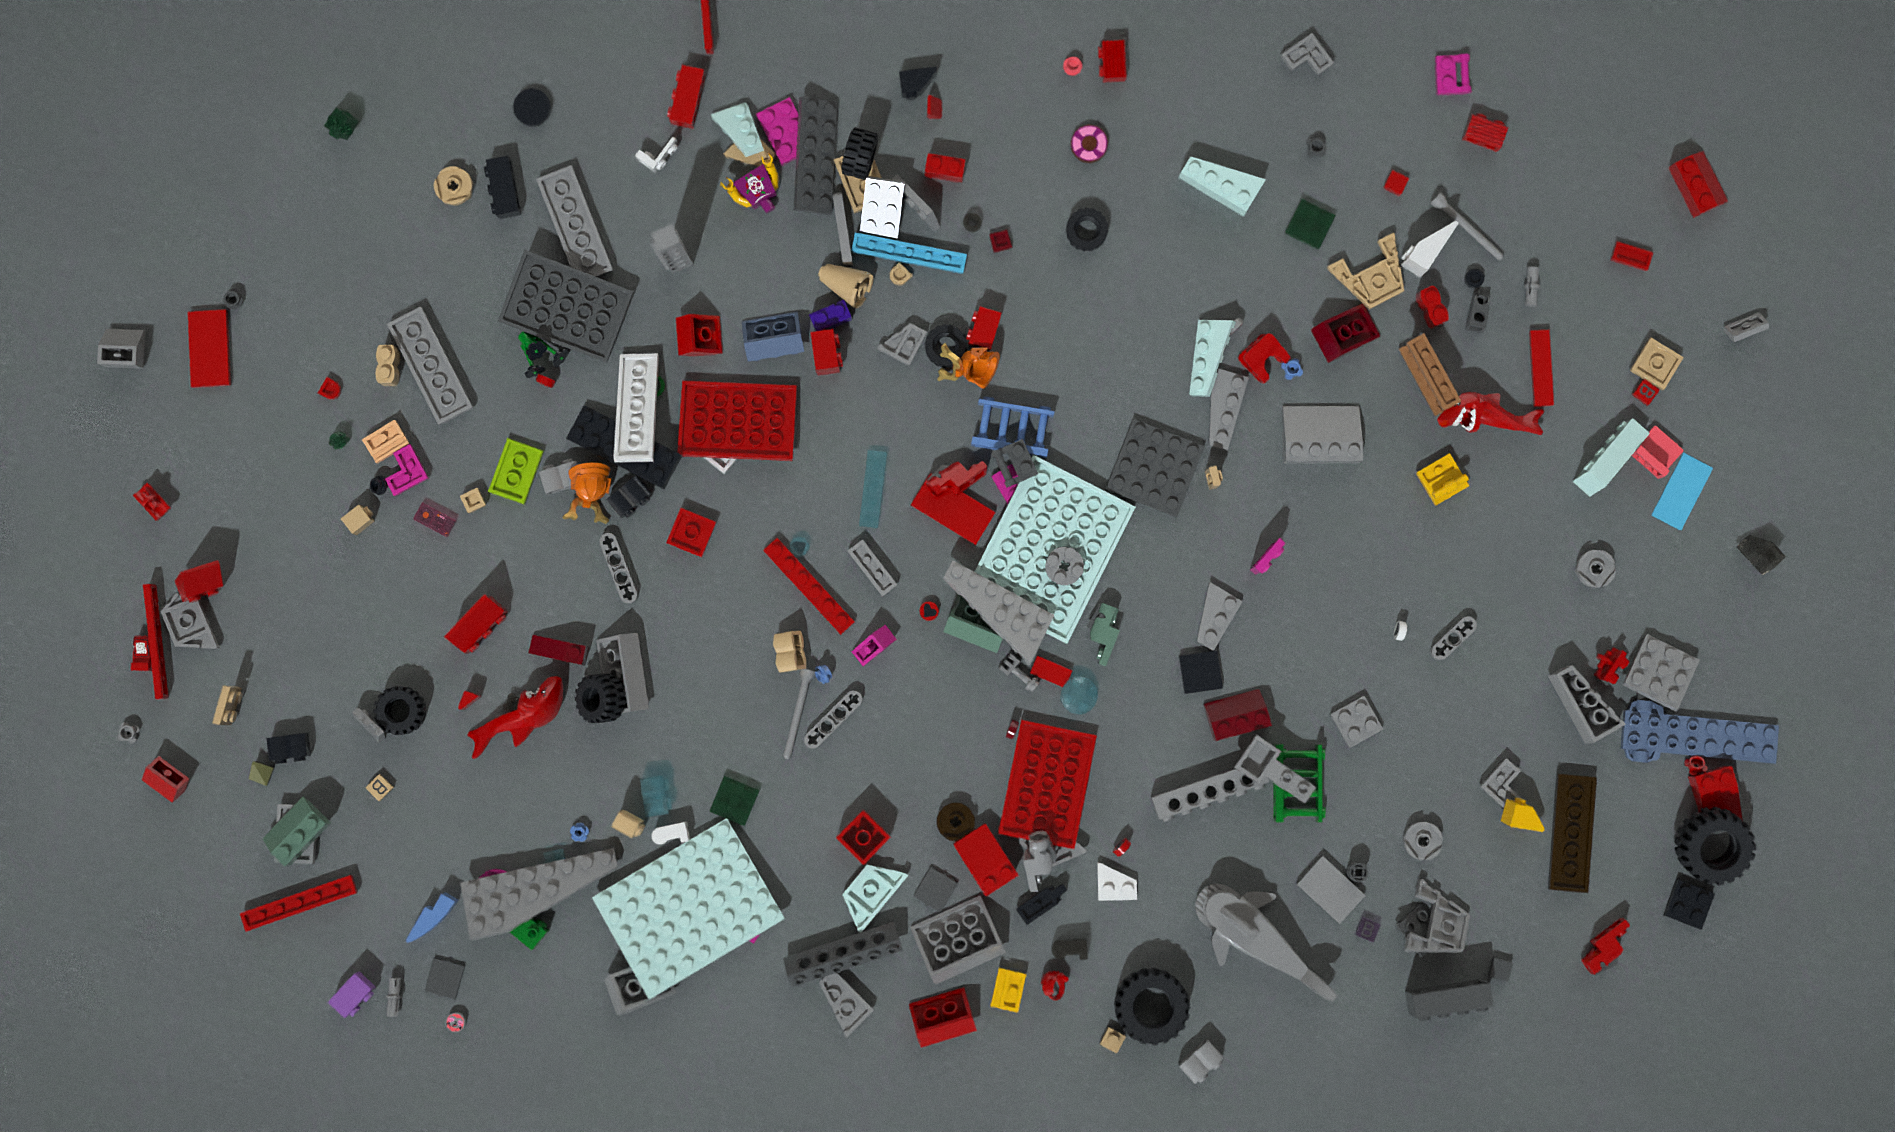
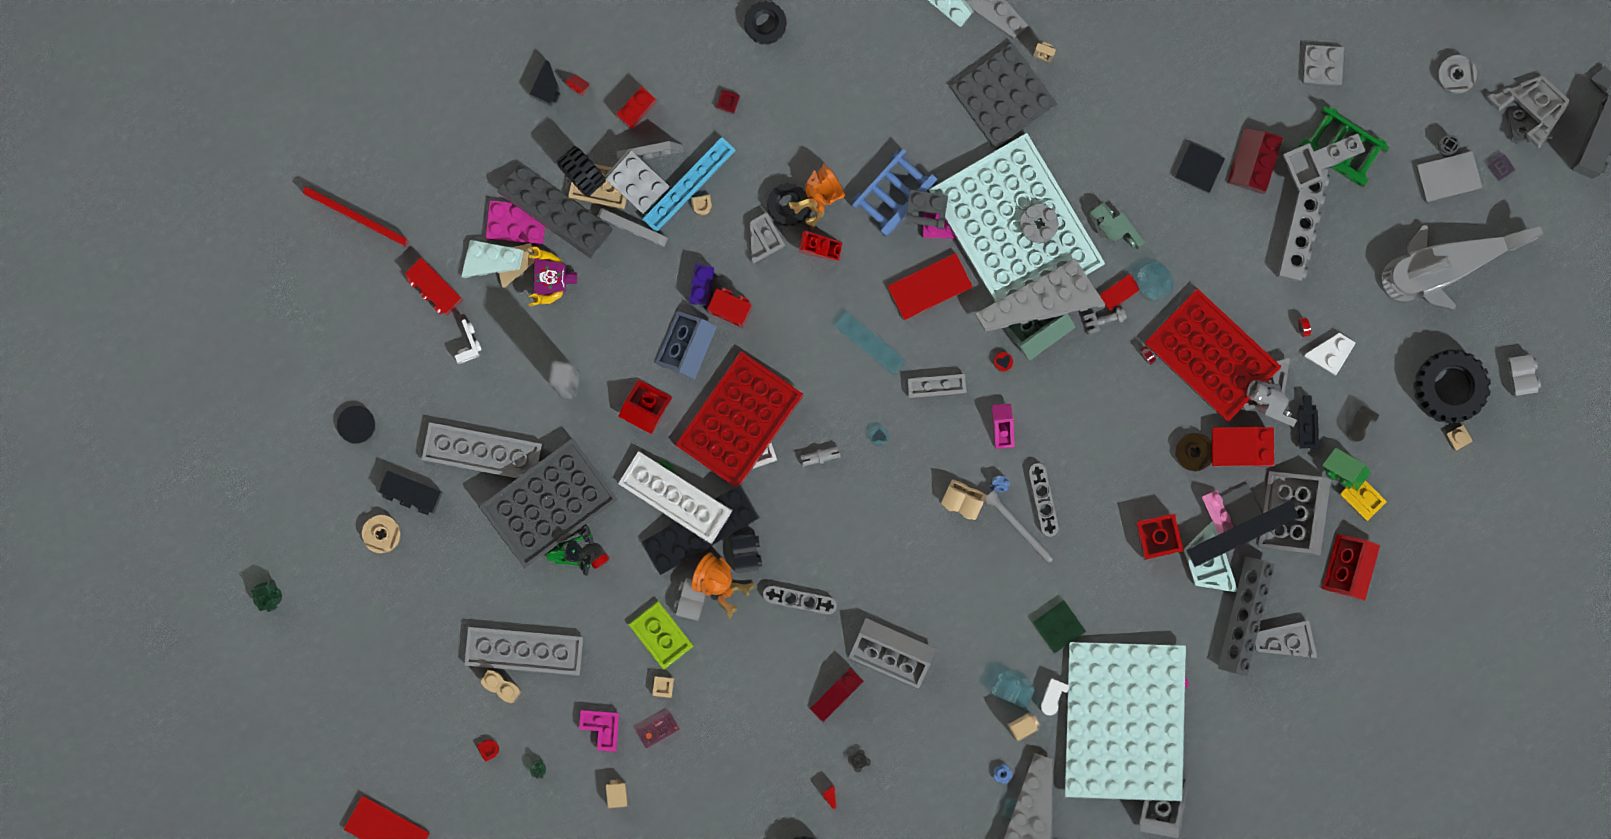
camera: 55 degrees left, 0 degrees up
(229, 295) = (351, 784): dark grey plate -> none
(378, 485) = (598, 759): black plate -> none
(385, 441) = (565, 729): light nougat plate -> none
(476, 624) = (773, 748): red slope -> none
(531, 714) = (878, 748): red piece -> none
(600, 698) = (900, 695): black tyre -> none
(691, 532) = (809, 519): red plate -> none
(750, 508) = (820, 456): none -> light grey pin
(808, 586) = (917, 449): red plate -> none
(847, 283) = (681, 253): tan cone -> none
(910, 906) = (1242, 533): none -> black tile
(912, 880) = (1217, 511): none -> bright pink plate
(926, 394) = (819, 246): none -> red slope
(954, 478) = (905, 268): red plate -> none
(972, 216) = (692, 111): clear smoke plate -> none
(984, 328) = (794, 162): red brick -> none
(1022, 960) = (1346, 469): none -> green brick
(1048, 981) = (1378, 460): red piece -> none
(1217, 614) = (1161, 124): light grey wing -> none
(1272, 552) = (1142, 55): dark pink plate -> none

